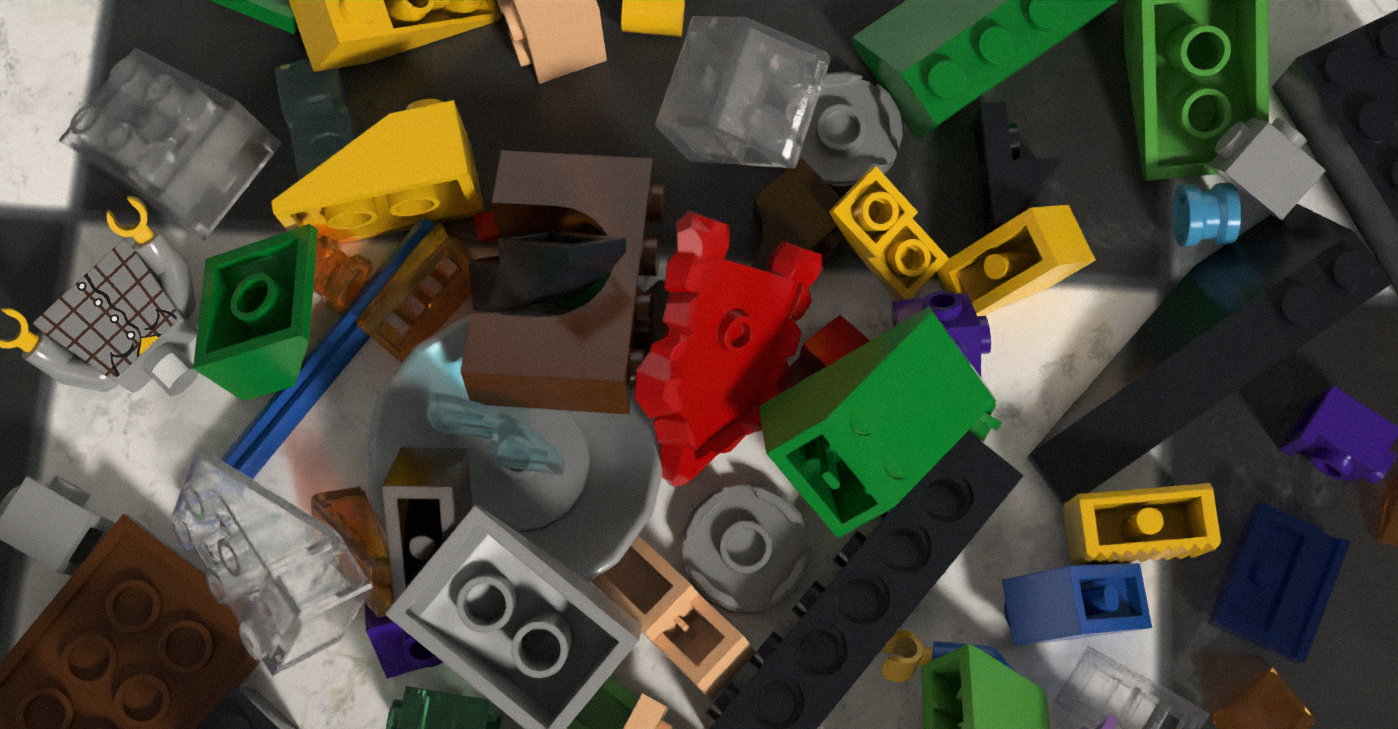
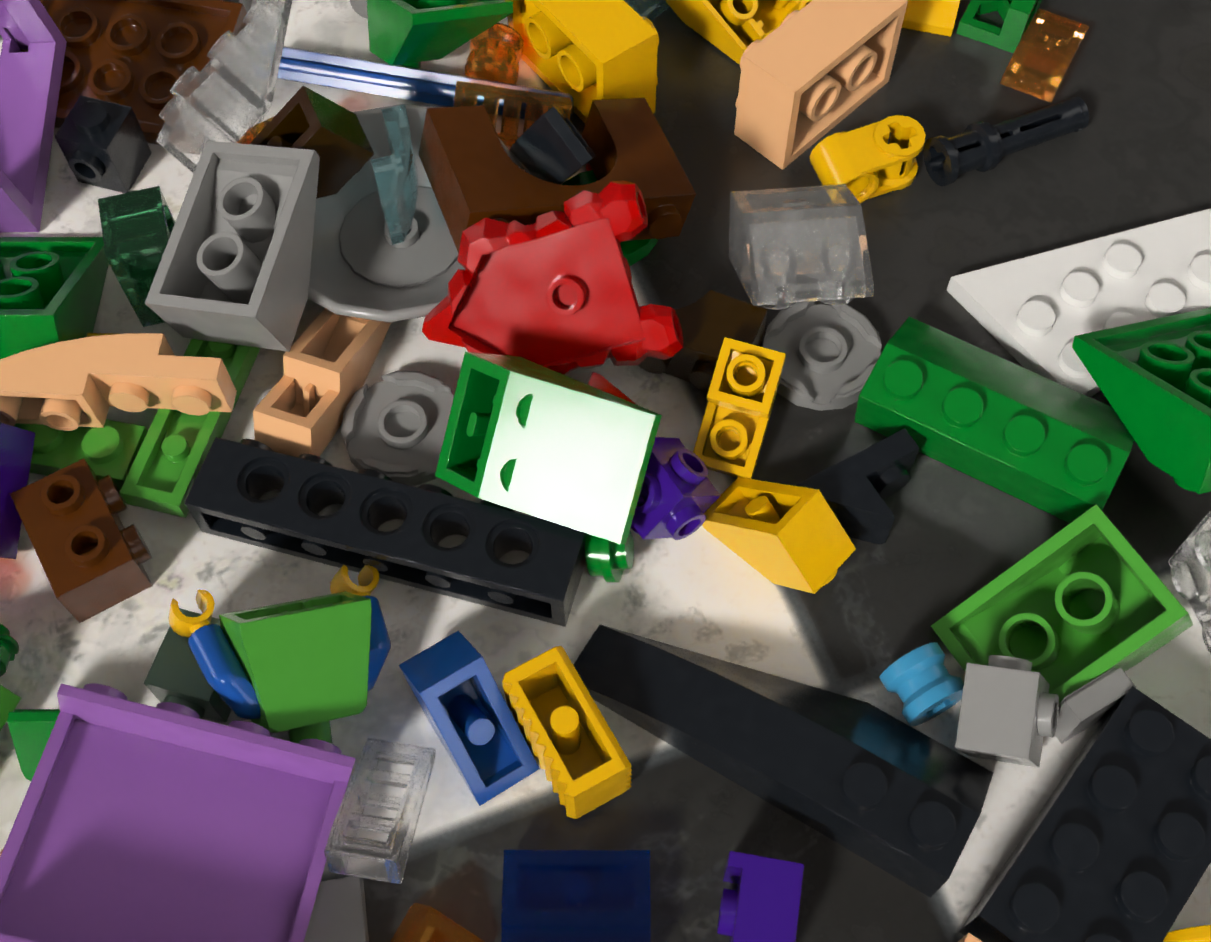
camera: 65 degrees right, 15 degrees down
(1283, 90) = (1091, 703): none -> light grey tile

